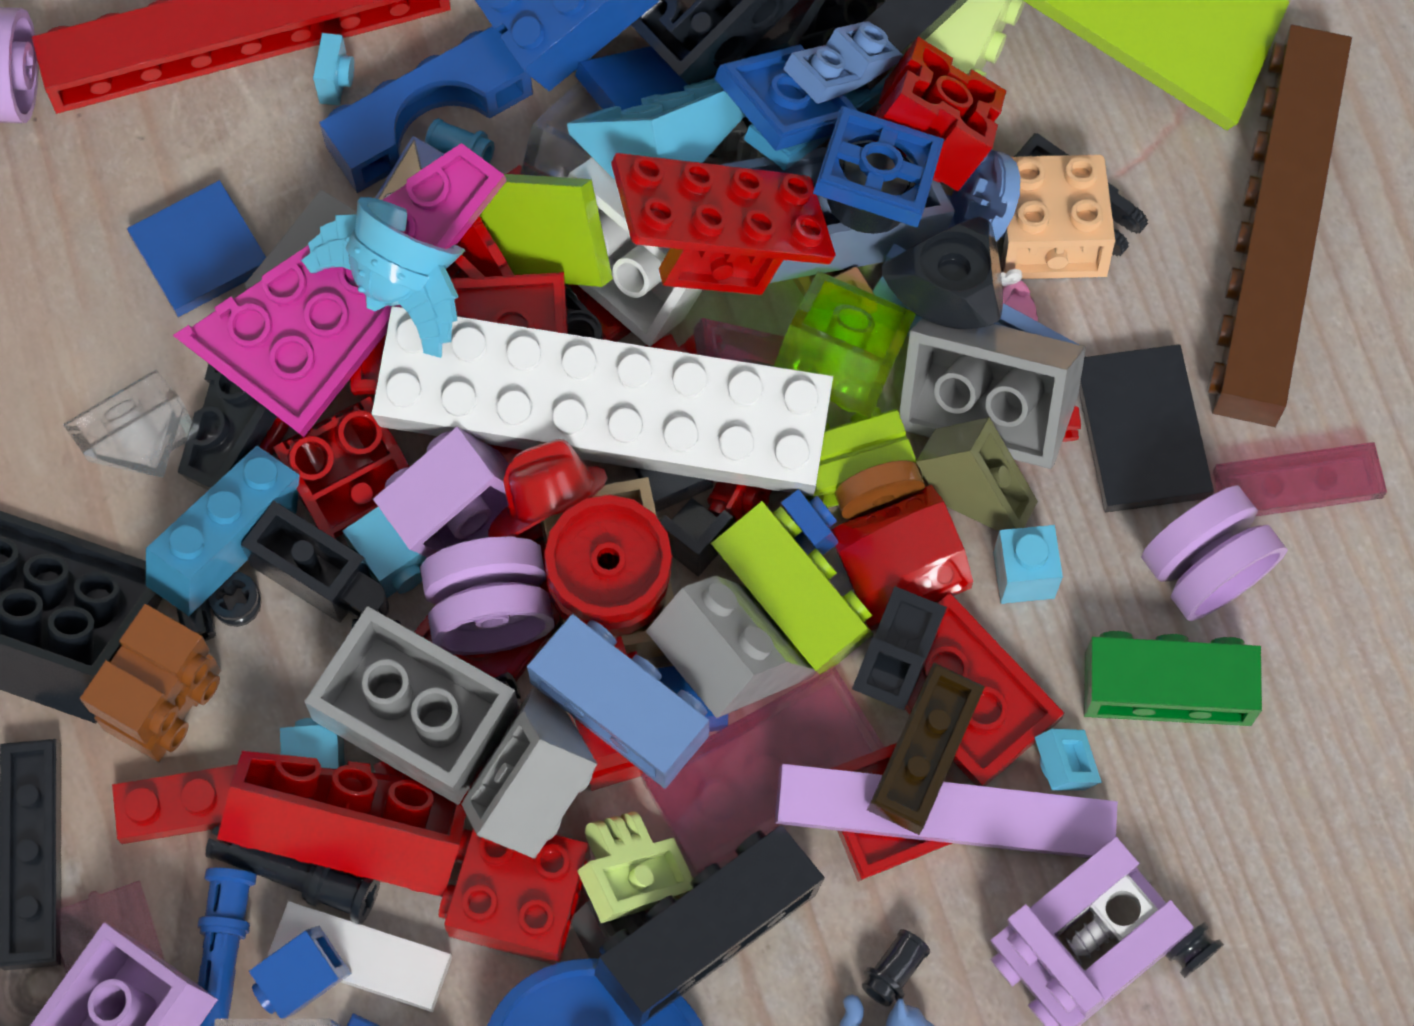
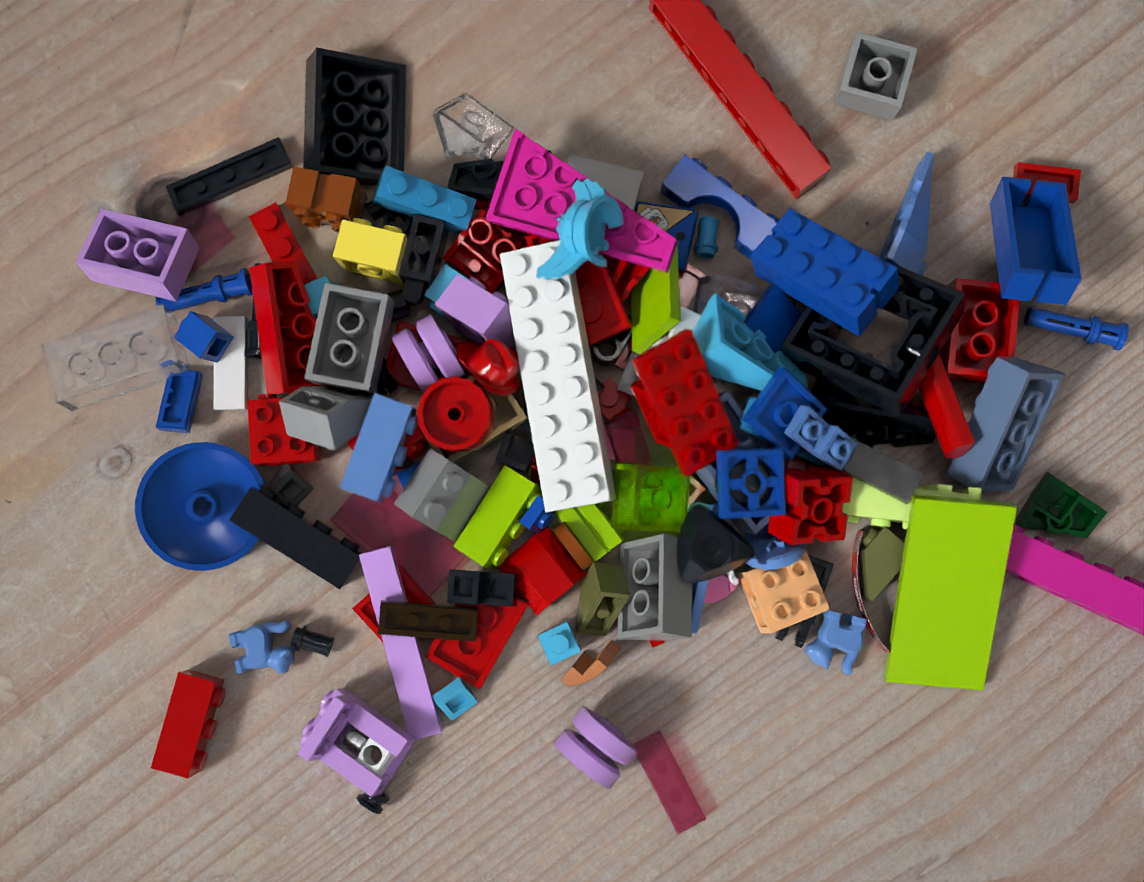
camera: 80 degrees right, 15 degrees up
(197, 248) = (592, 120): blue tile -> none
(273, 635) = (370, 250): none -> light yellow brick
(332, 69) = (726, 148): medium azure plate -> none
(630, 868) = (313, 486): yellowish green hinge -> none
(1052, 72) = (878, 561): none -> olive slope
(1082, 520) = (588, 668): none -> nougat slope
(1092, 118) = (857, 592): none -> sticker
(1143, 429) = (670, 682): black tile -> none
(1145, 158) = (842, 637): none -> medium blue animal
(1172, 679) = (521, 743): green brick -> none
(1281, 226) = (830, 727): reddish brown brick -> none

